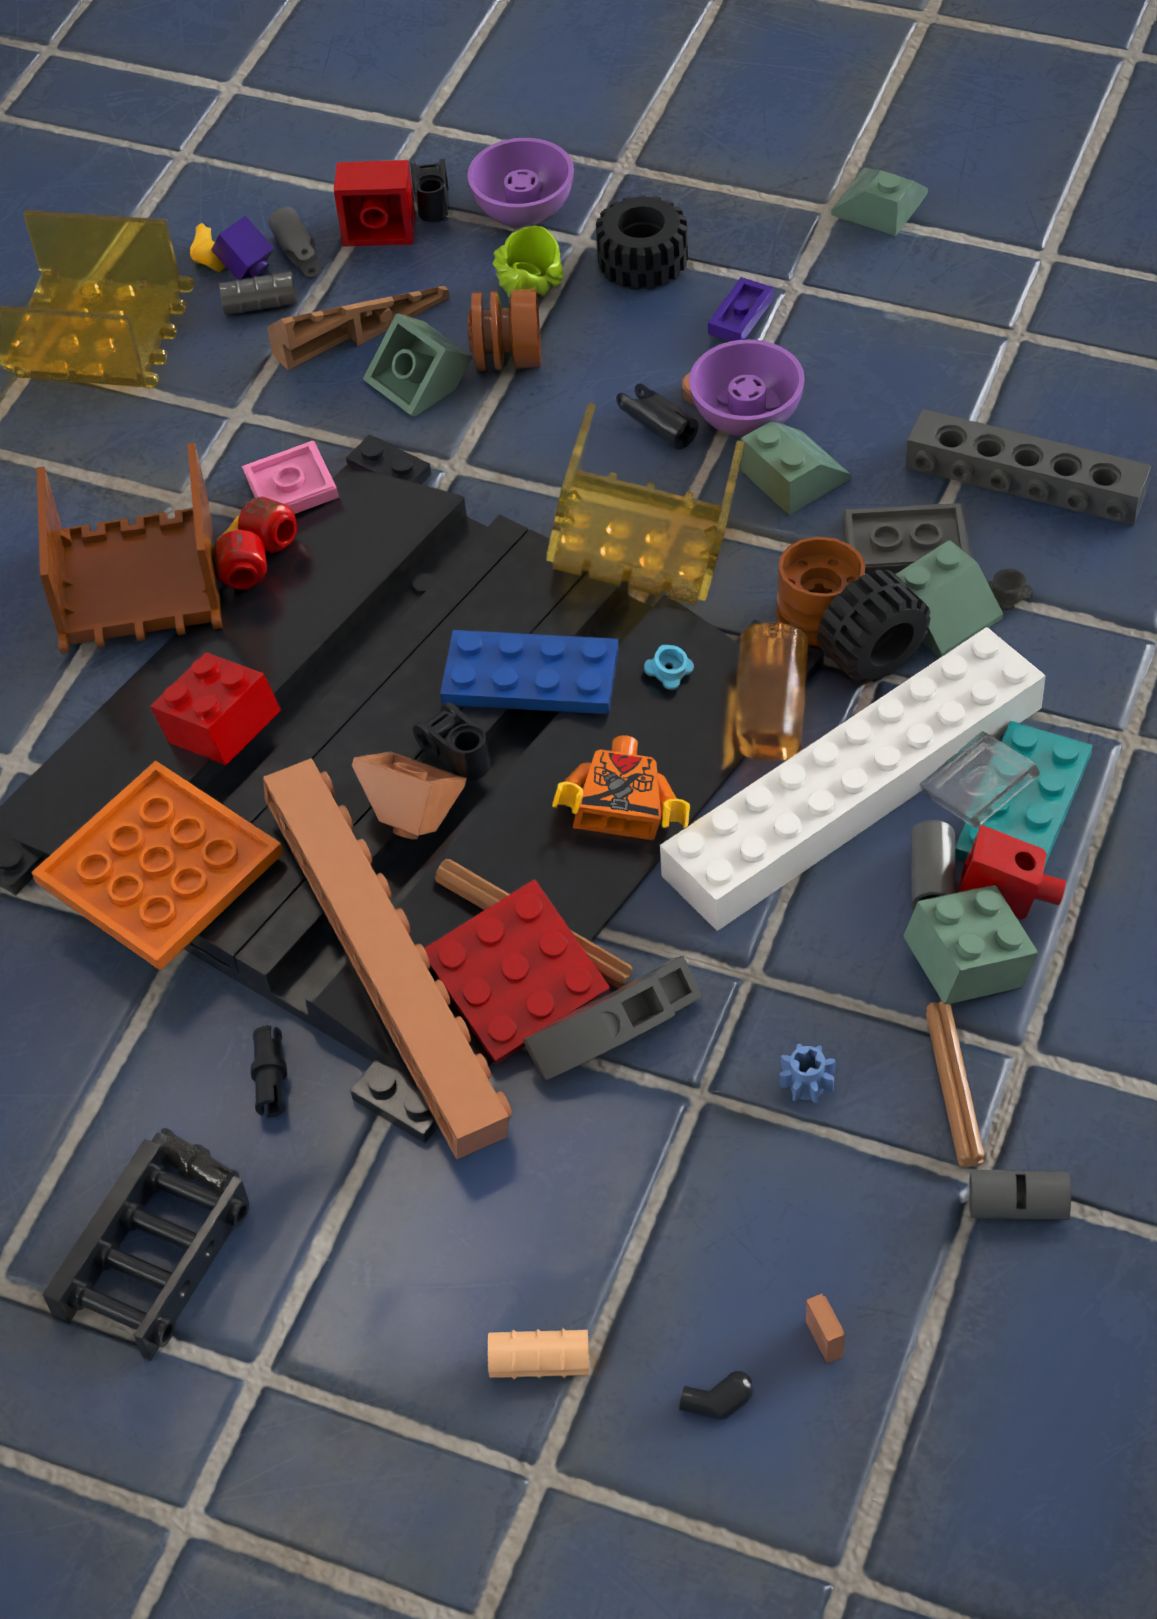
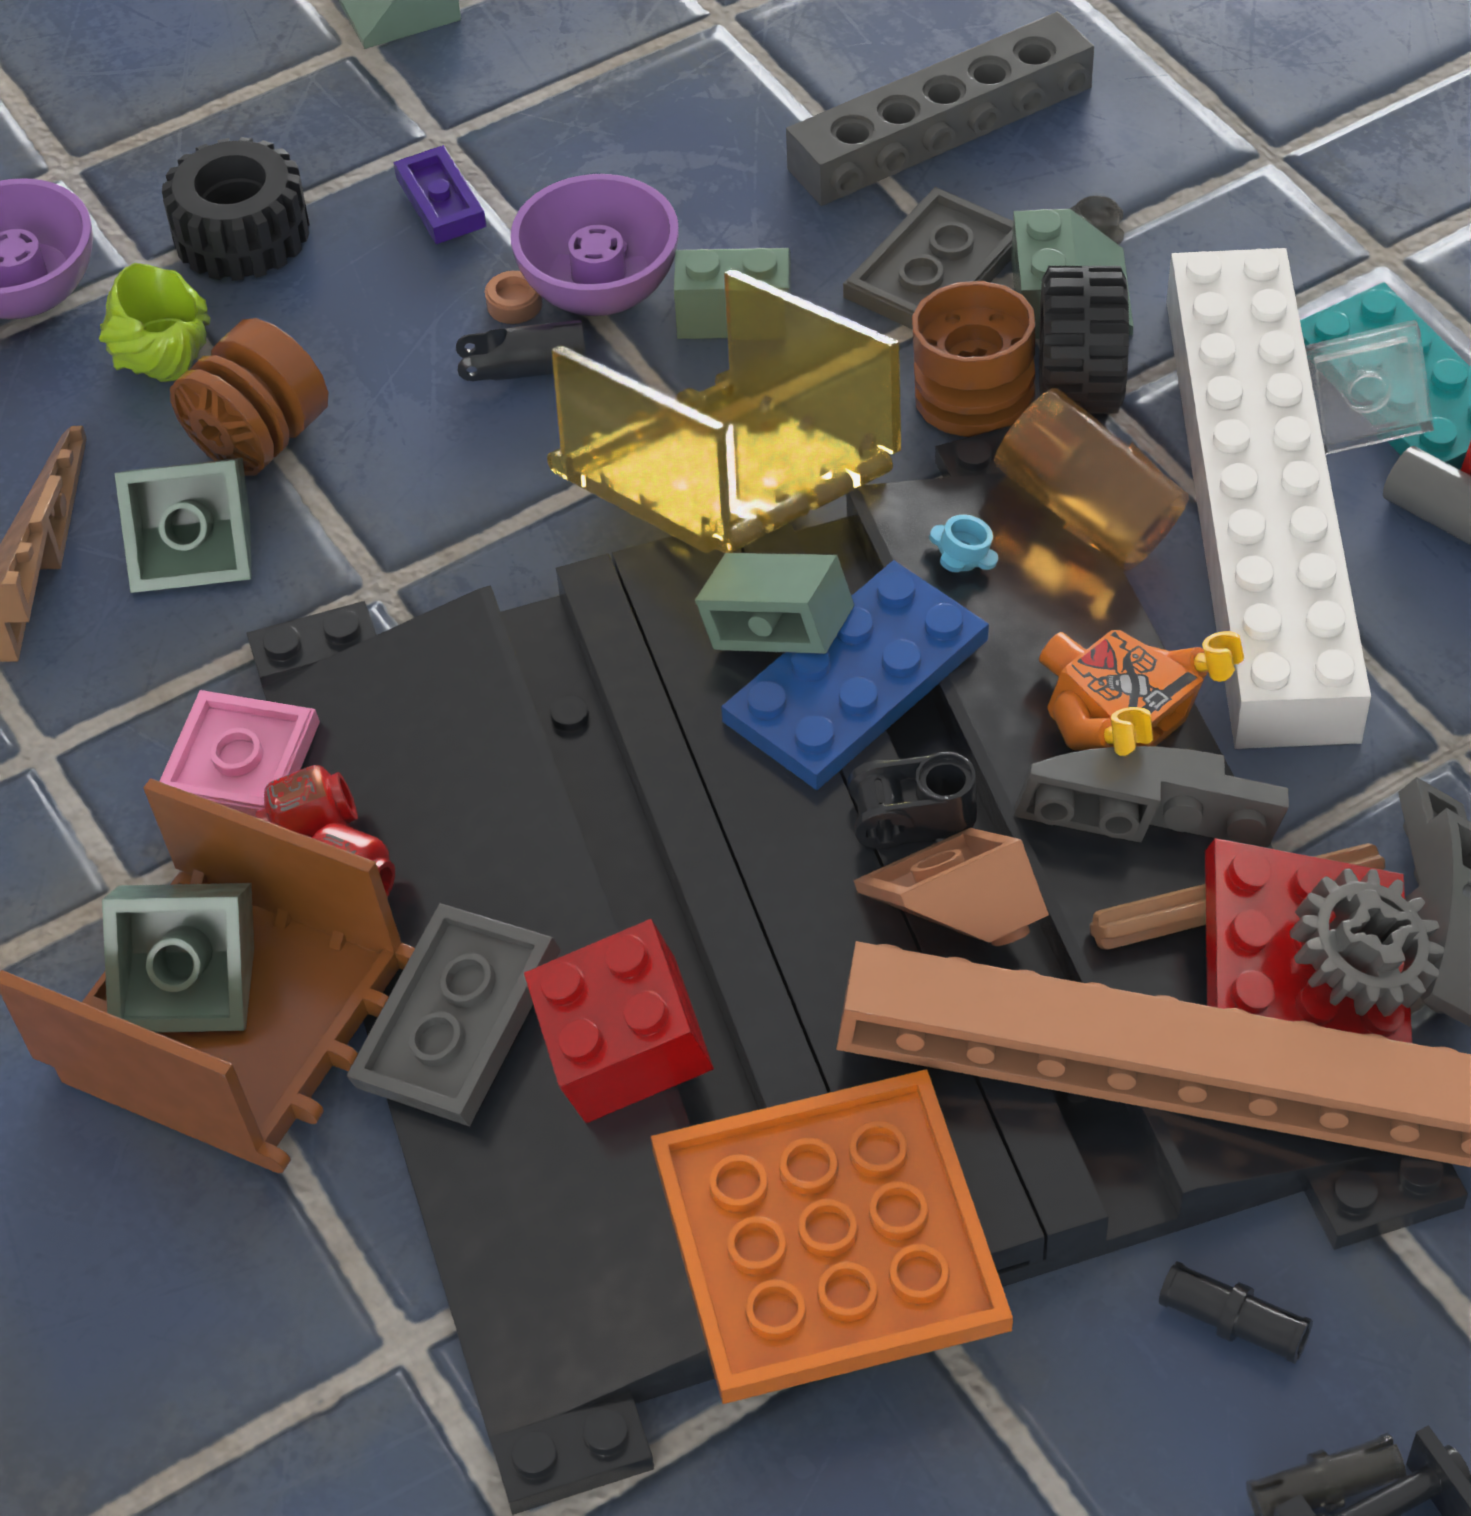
camera: 55 degrees left, 0 degrees up
(139, 531) = (179, 955): none -> sand green slope
(168, 653) = (452, 1014): none -> dark grey plate
(530, 604) = (775, 602): none -> sand green brick
(531, 967) = (1366, 942): none -> dark grey gear
(558, 835) = (1151, 787): none -> dark grey slope

